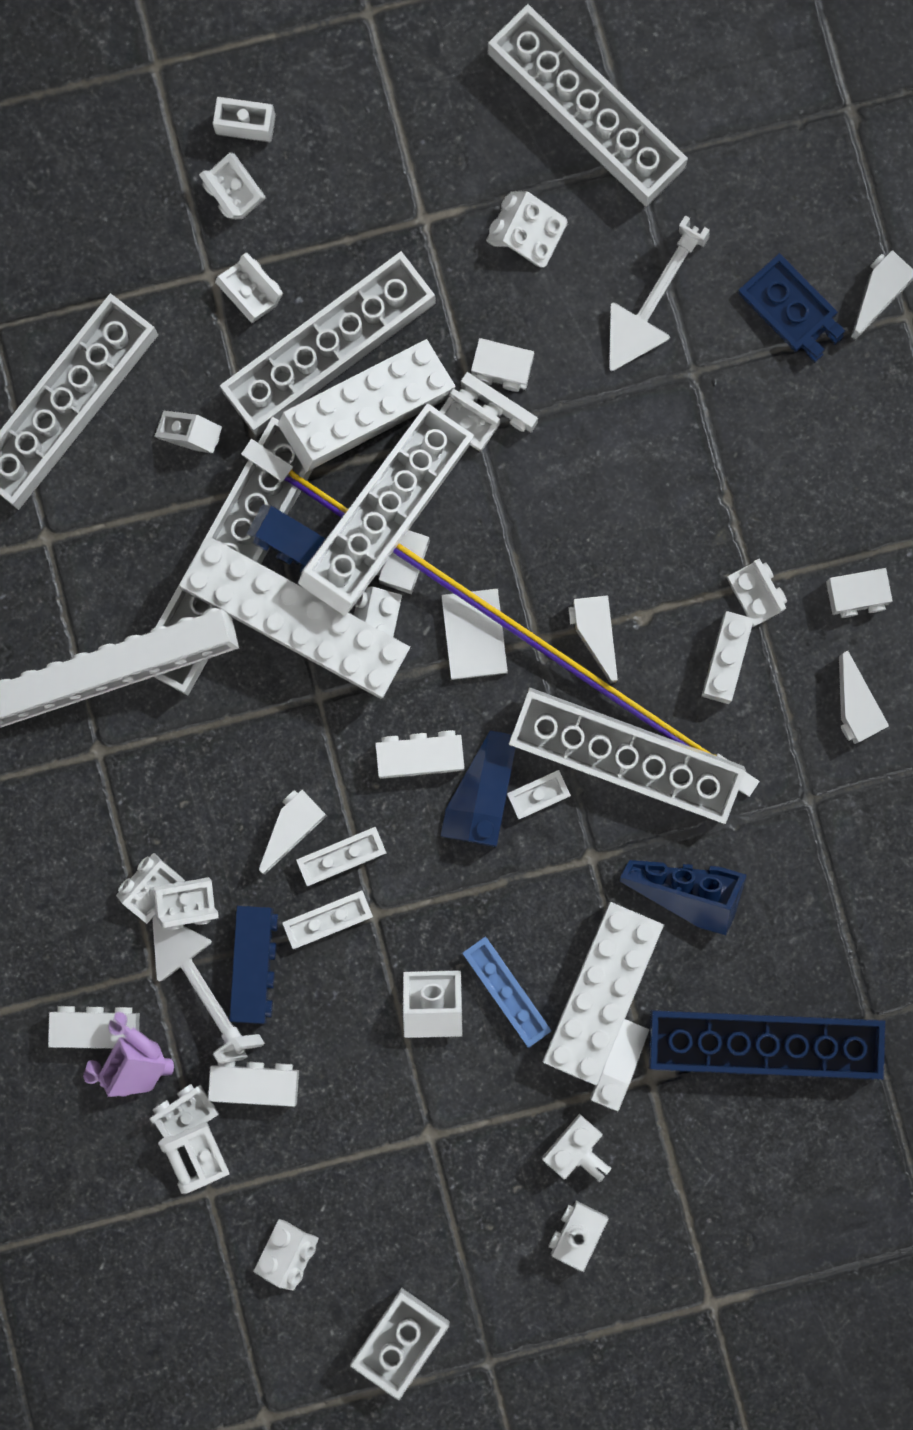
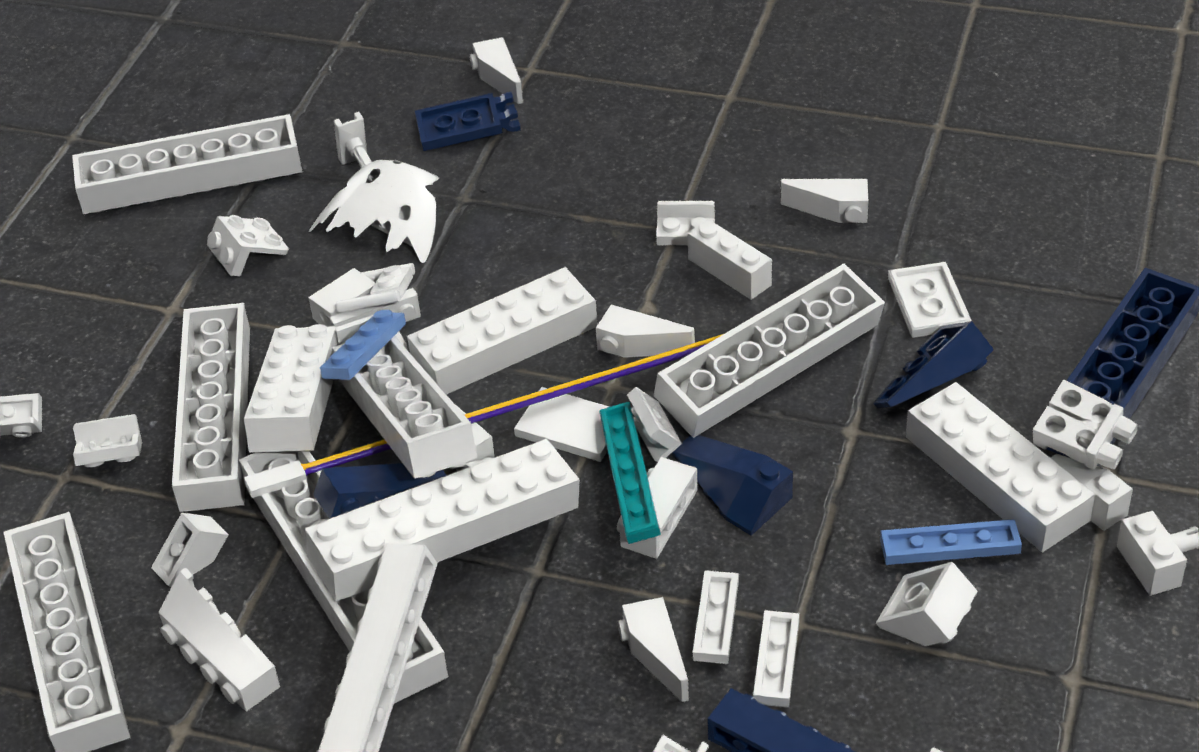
camera: 60 degrees left, 40 degrees down
(115, 518) = (216, 644): none -> white wedge
(432, 718) = (629, 473): none -> teal tile
(433, 434) = (363, 345): none -> medium blue plate
(497, 706) = (653, 425): none -> white bracket
(530, 396) = (388, 289): none -> white plate
(538, 520) = (504, 330): none -> white brick
(538, 794) = (763, 432): white plate -> none
(633, 319) = (381, 201): none -> white piece
(647, 1052) = (1083, 427): none -> white hips
(778, 846) = (927, 298): none -> white tile
(859, 592) = (735, 164): white brick -> none

